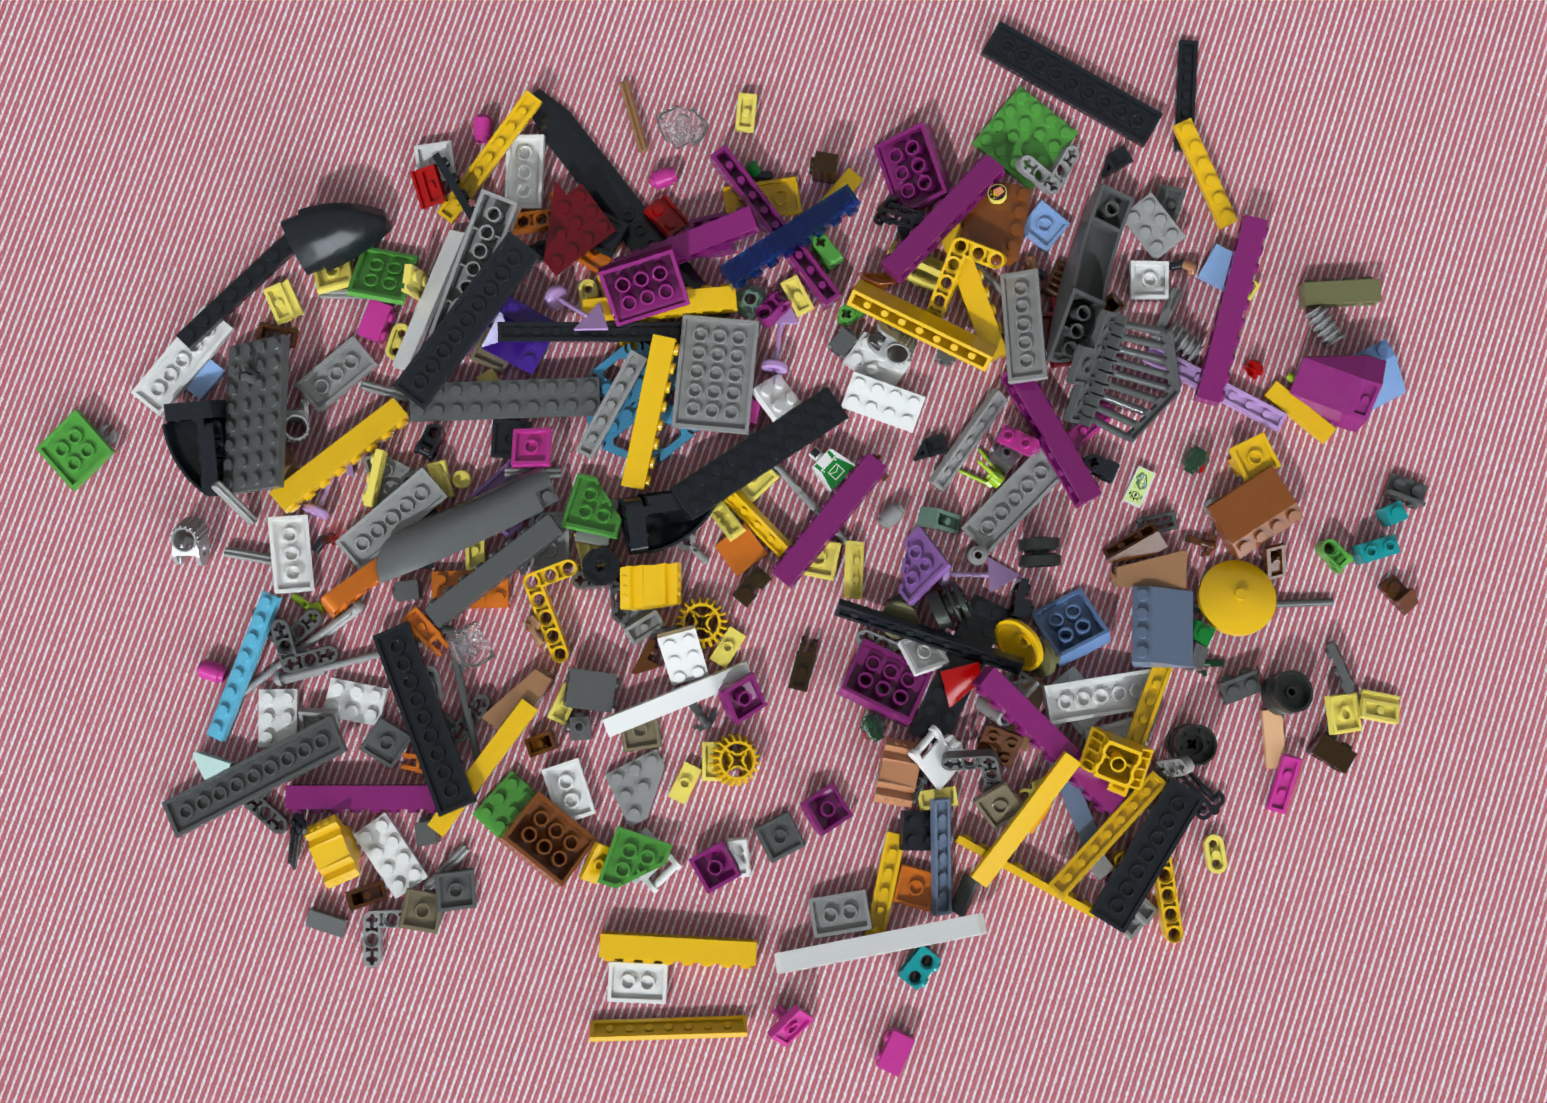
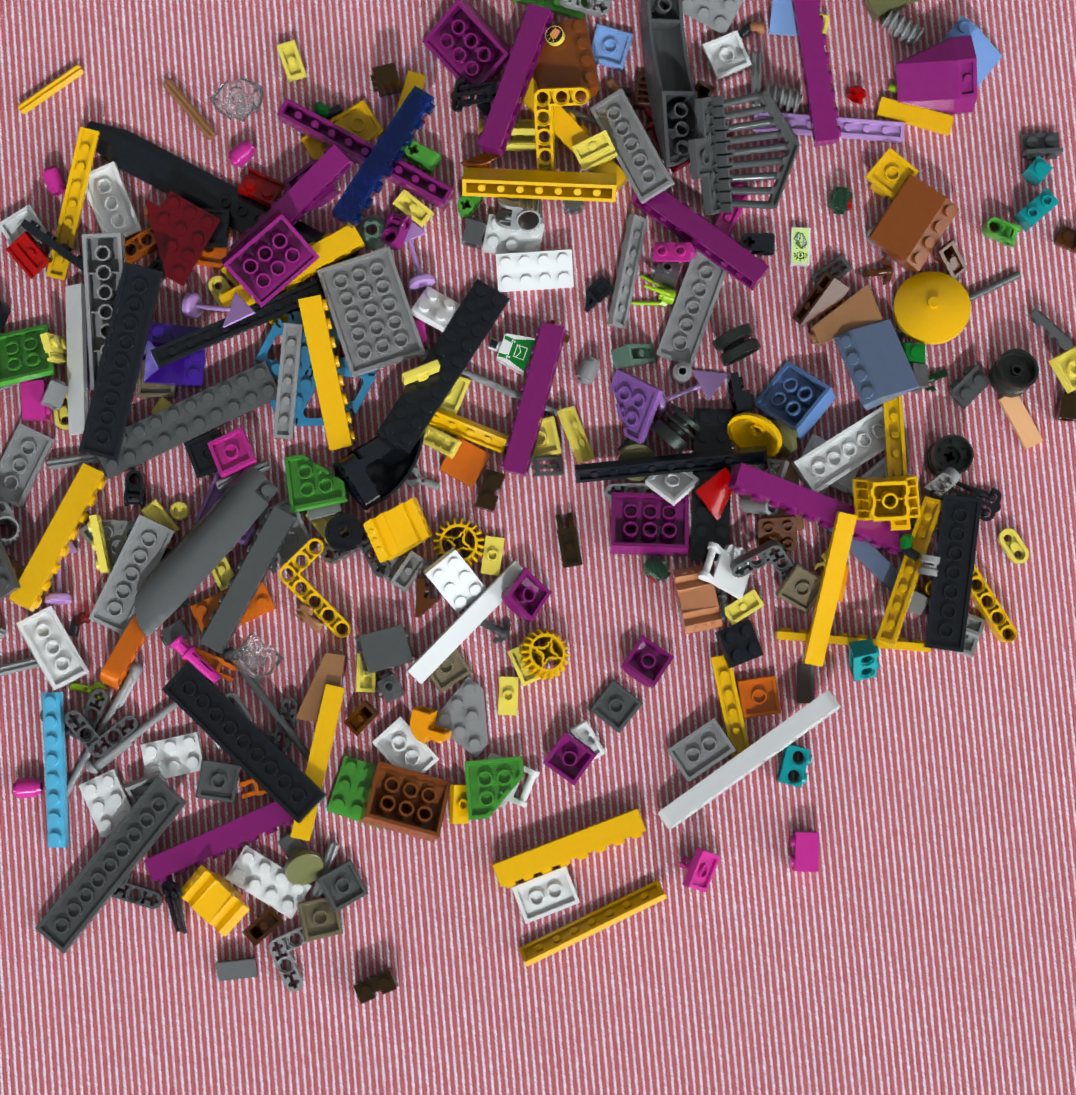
camera: 30 degrees left, 0 degrees up
(210, 764) = (65, 873): light aqua slope -> none
(394, 324) = (54, 394): none -> light grey brick
(410, 614) = (188, 652): none -> dark pink pin
(427, 857) = (303, 867): none -> olive tile
(437, 994) = (383, 981): none -> dark brown brick
(516, 44) = (50, 89): none -> yellow axle
(594, 778) = (424, 728): none -> light orange brick
(735, 451) = (421, 372): none -> light yellow plate
(804, 584) = (537, 467): none -> dark grey tile
(941, 856) = (769, 657): sand blue tile -> none
(987, 316) = (594, 151): none -> light yellow plate
(1027, 897) = (863, 659): none -> teal brick
(1114, 812) = (906, 547): none -> arm
(1125, 842) = (928, 569): none -> light grey wheel
(1283, 783) = (1046, 456): dark pink tile -> none

